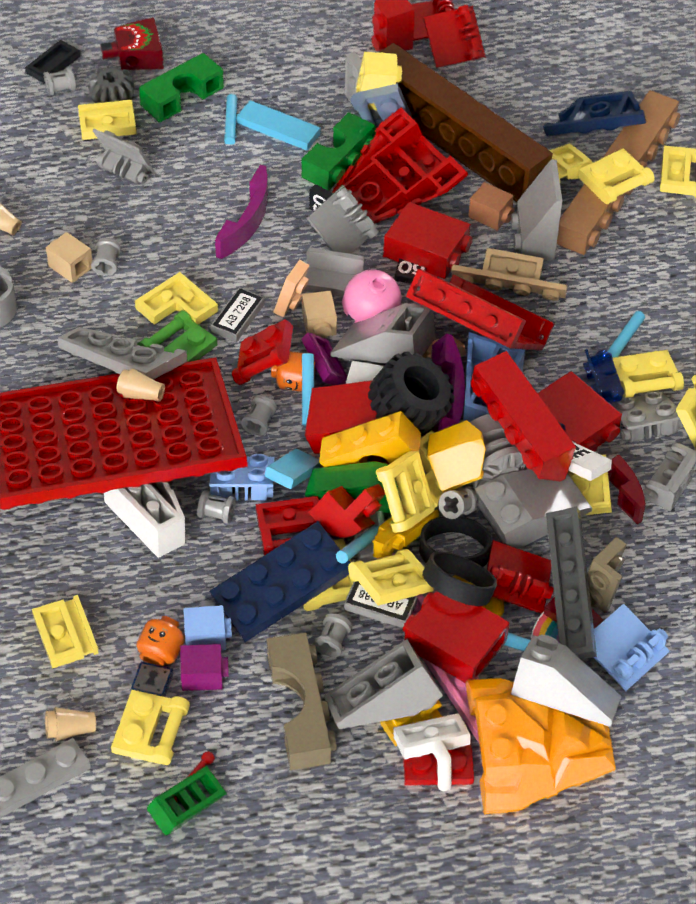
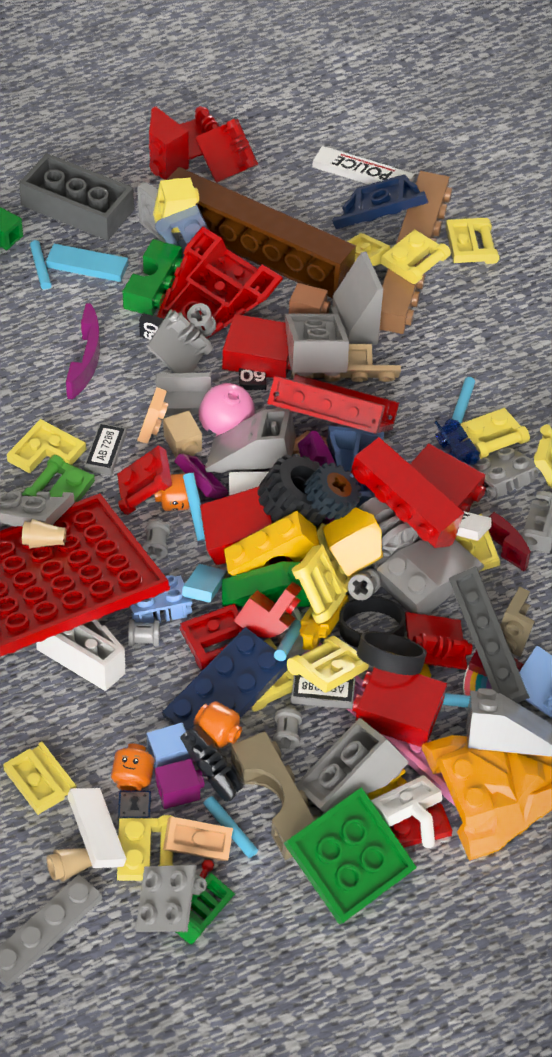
camera: 15 degrees left, 0 degrees up
(104, 694) = (96, 827): none -> white tile
(151, 781) = (167, 898): none -> light grey hinge
(203, 728) = (198, 839): none -> light nougat plate
(241, 654) = (213, 764): none -> black hinge
(244, 724) = (225, 820): none -> medium azure piece
(257, 614) = (219, 723): none -> orange head
(286, 57) = (77, 196): none -> dark grey brick
(354, 780) = (350, 855): none -> green plate
(378, 203) = (202, 320): none -> light grey bush
(444, 398) = (332, 491): none -> black wheel
(481, 246) = (316, 344): none -> light grey slope
(586, 76) = (355, 167): none -> white tile

